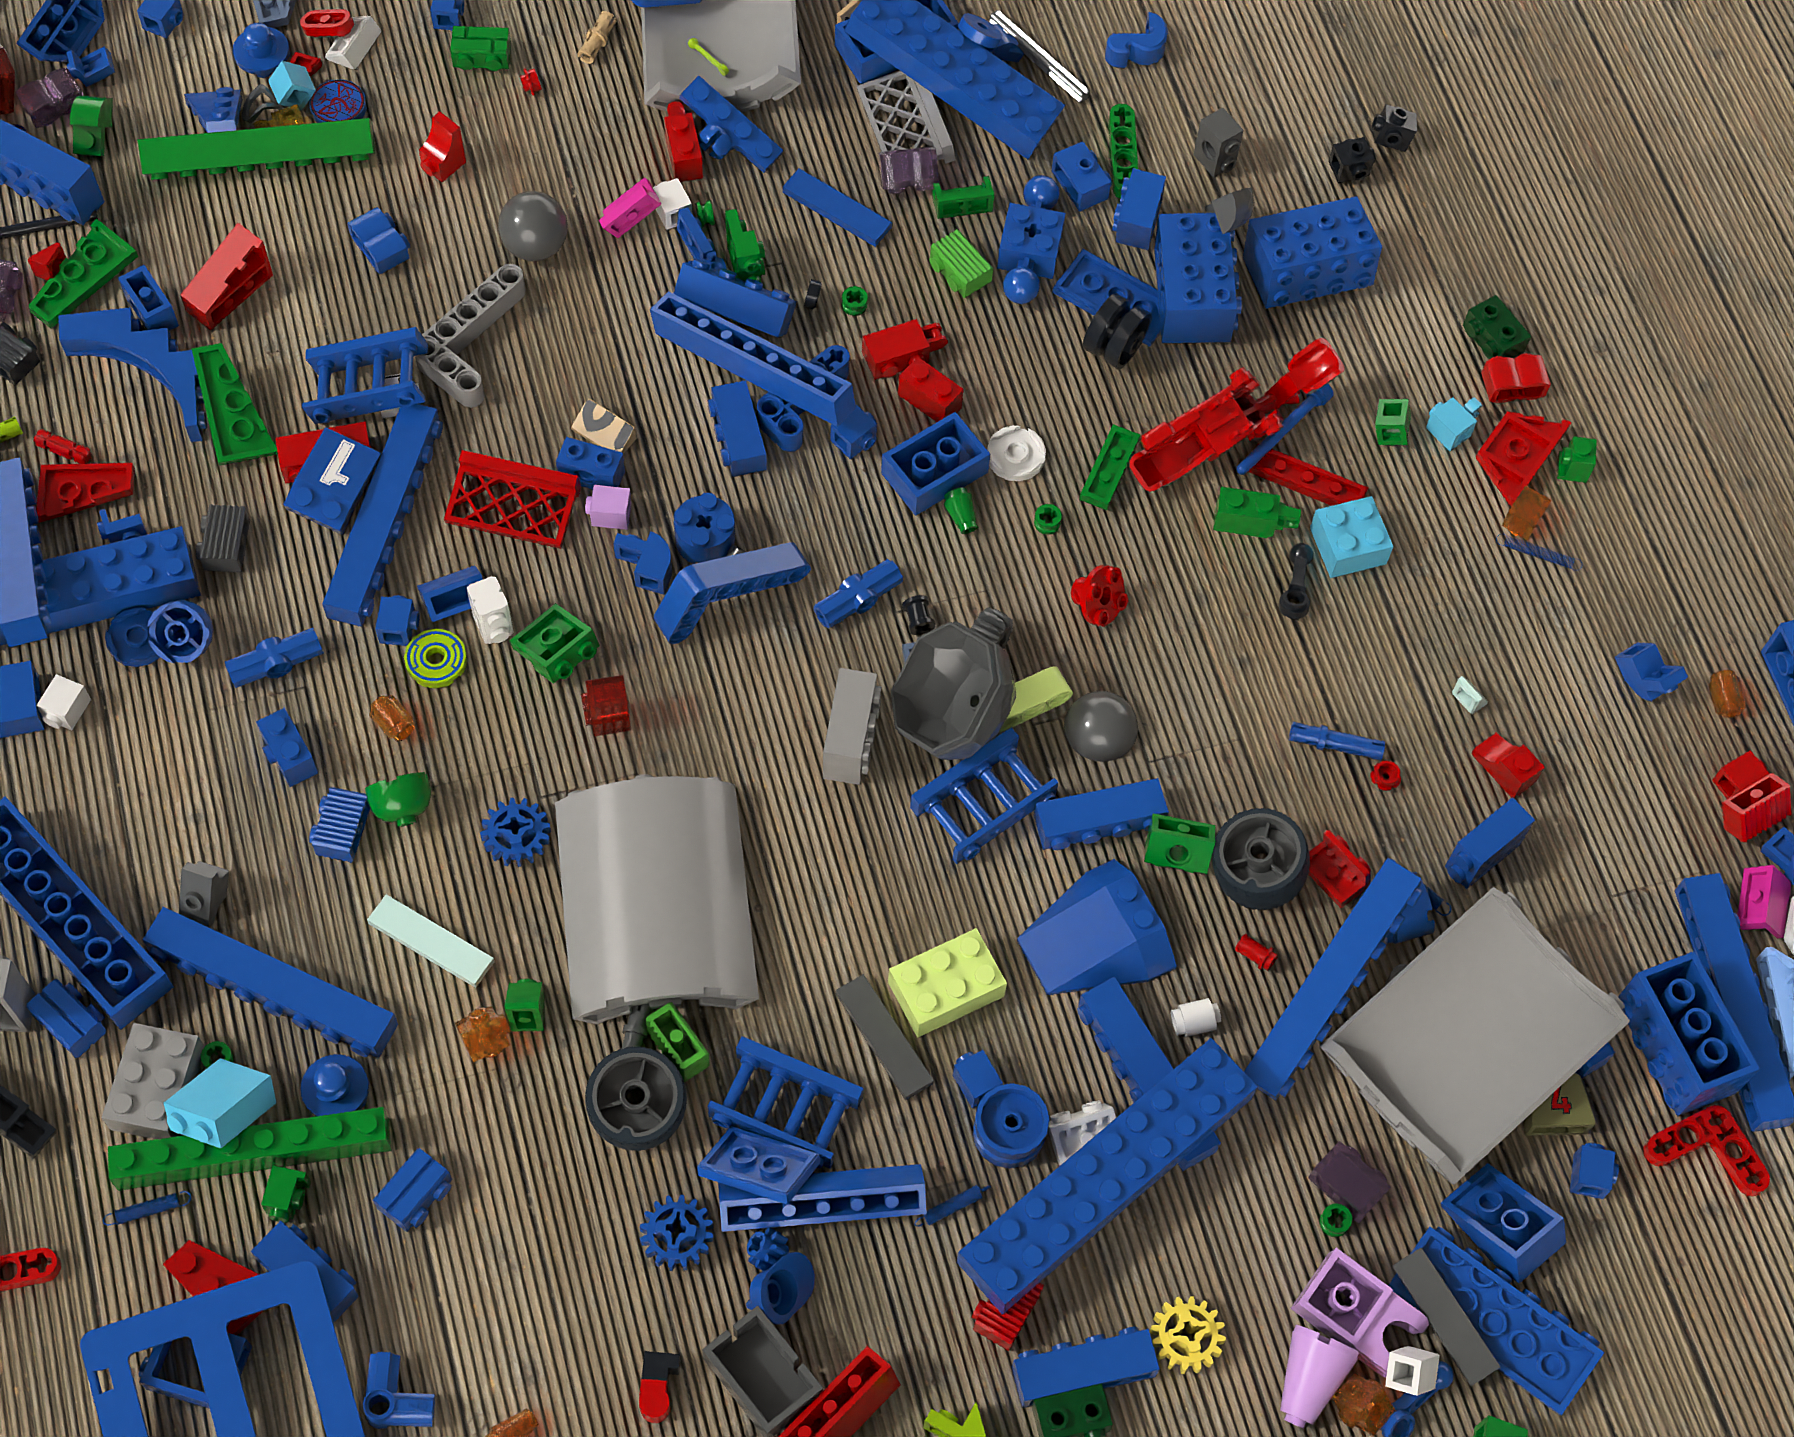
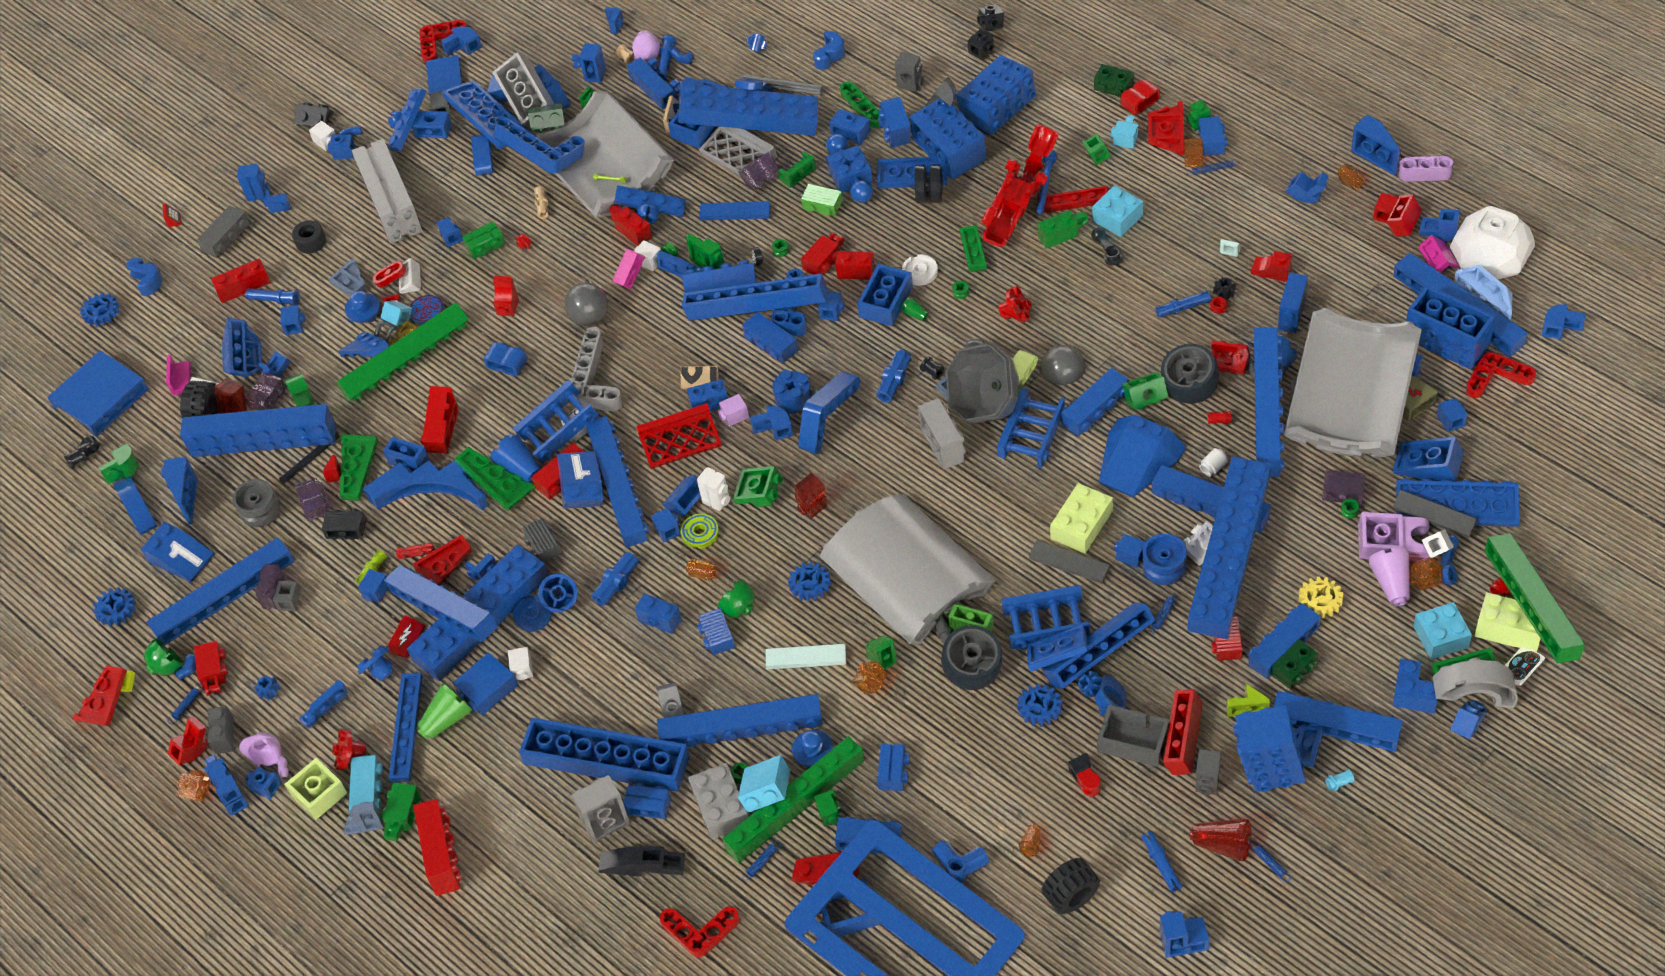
camera: 20 degrees left, 10 degrees down
(278, 395) = (515, 457): none -> blue cone
(1412, 754) = (1224, 288): none -> black gear
(1572, 502) = (1212, 135): none -> blue brick

